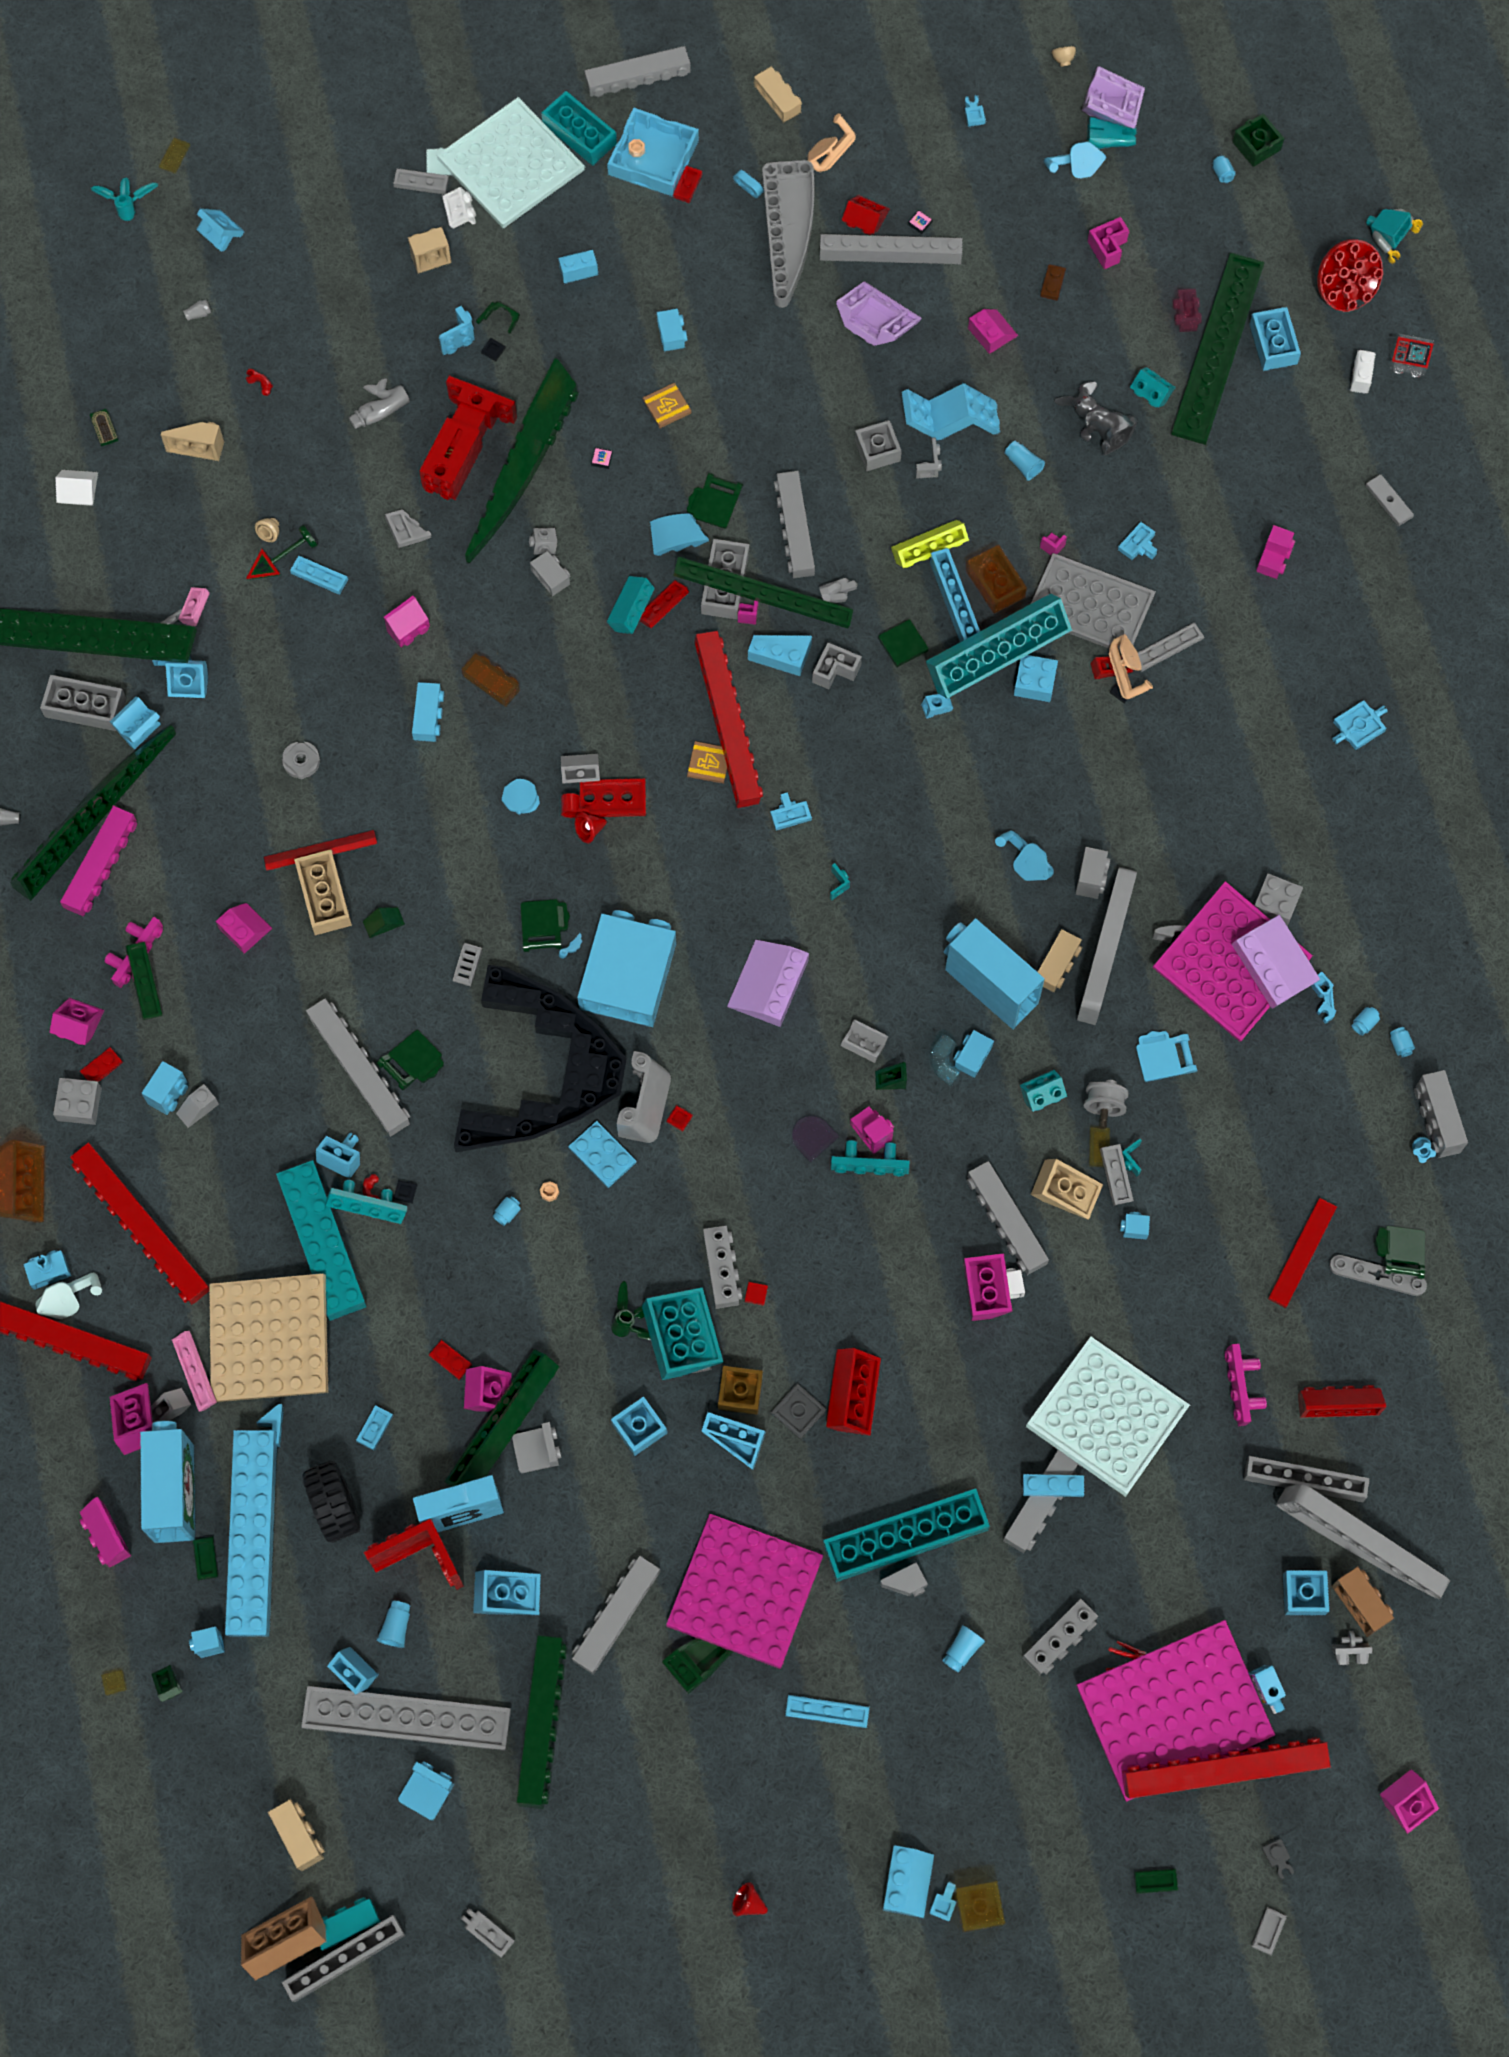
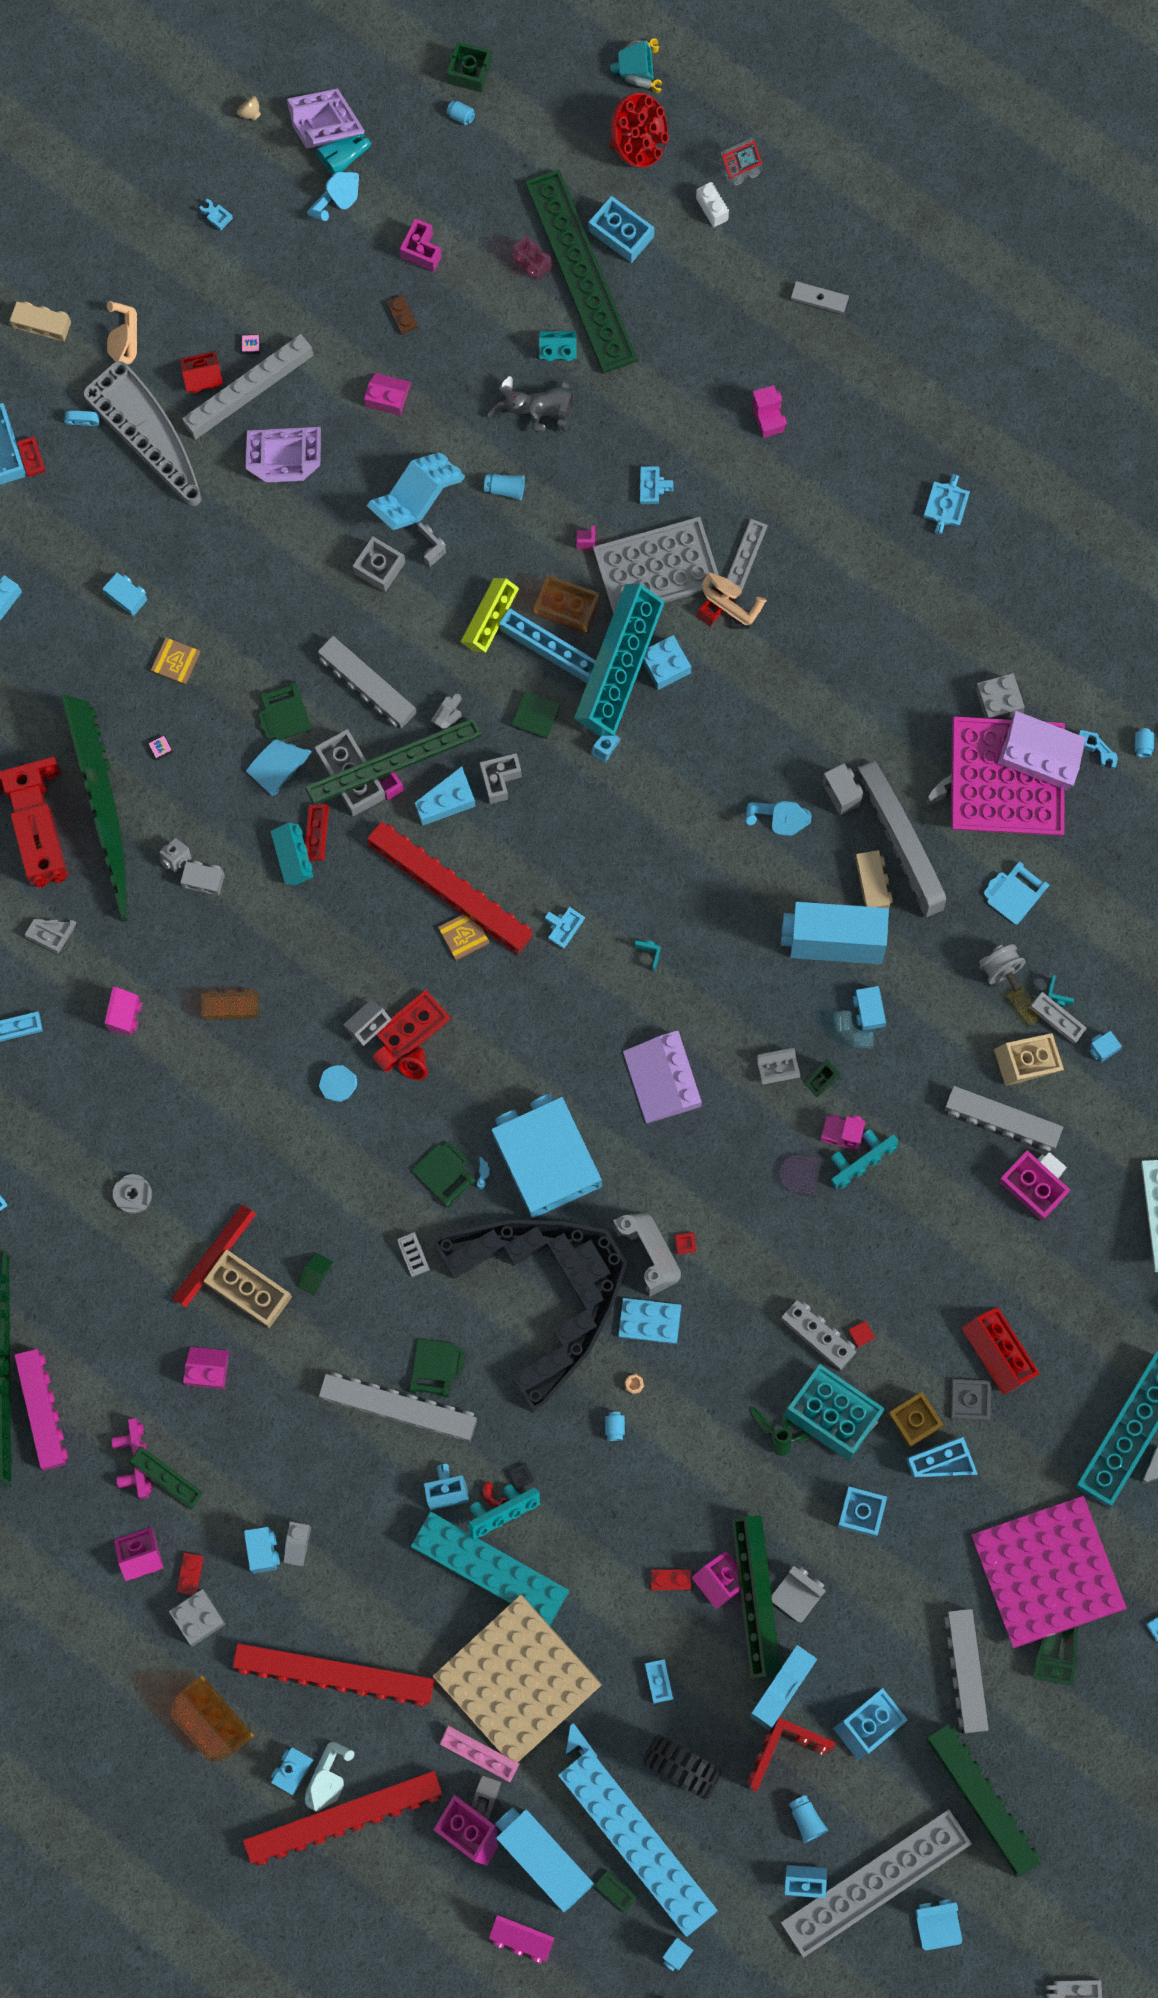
camera: 35 degrees left, 5 degrees up
(427, 712) = (202, 1072): medium azure brick -> none
(1043, 1090) = (948, 995): teal brick -> none

